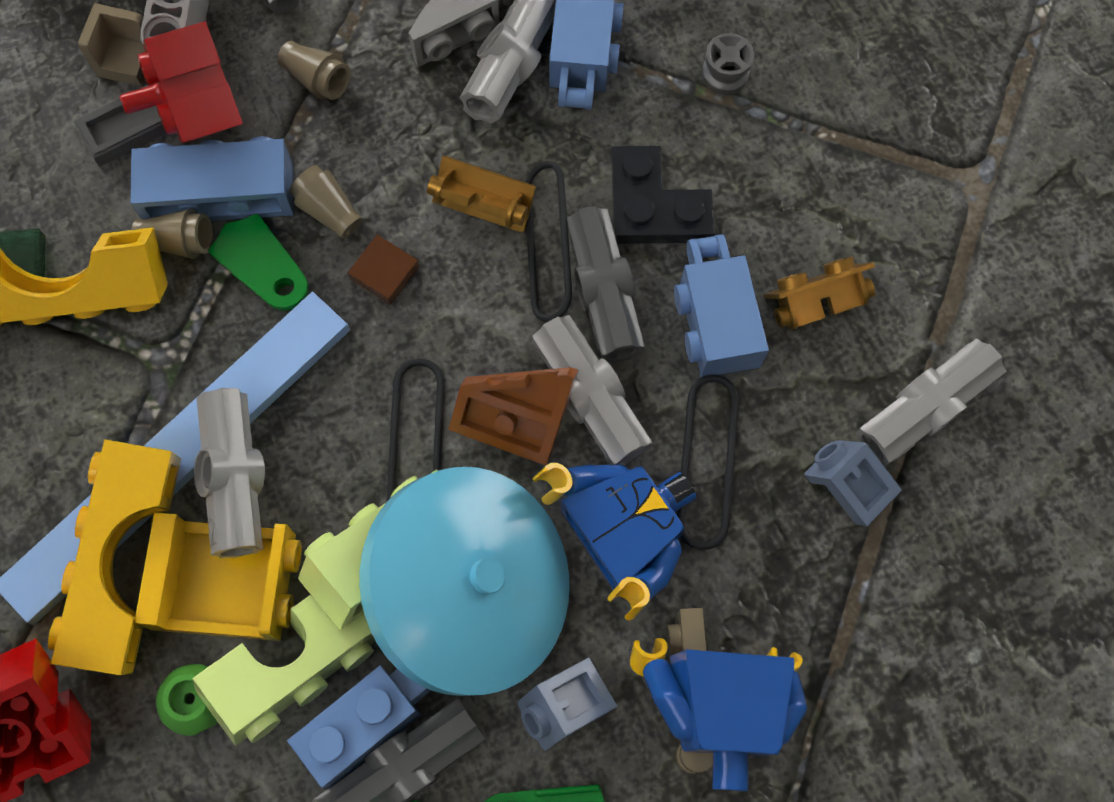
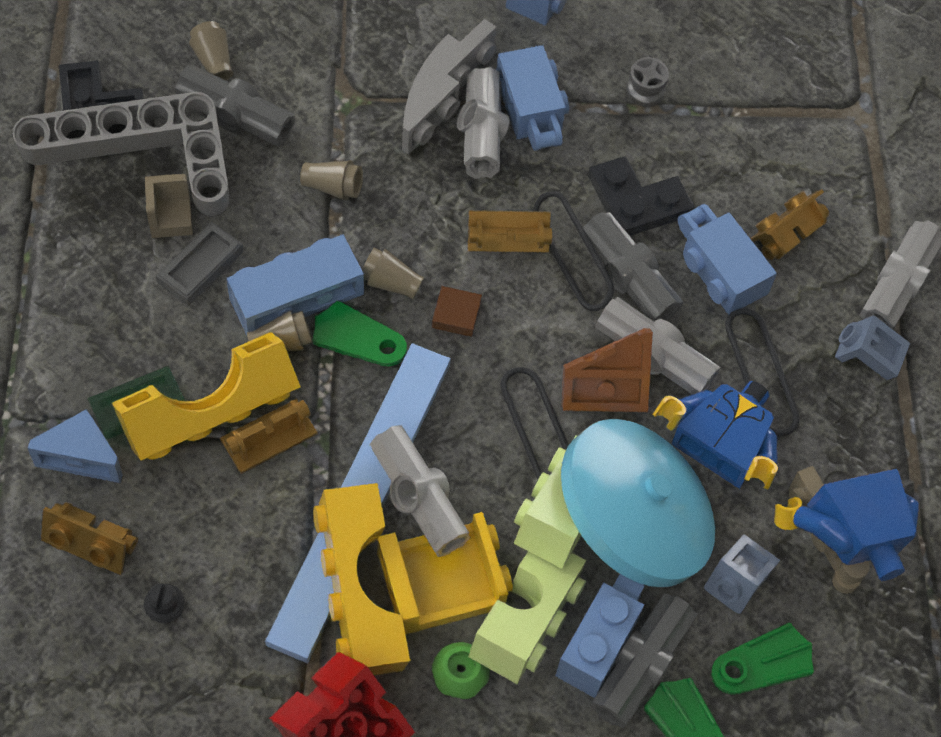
camera: 25 degrees left, 10 degrees down
(107, 346) = (269, 435): none -> pearl gold hinge
(184, 84) = (256, 214): red brick -> none

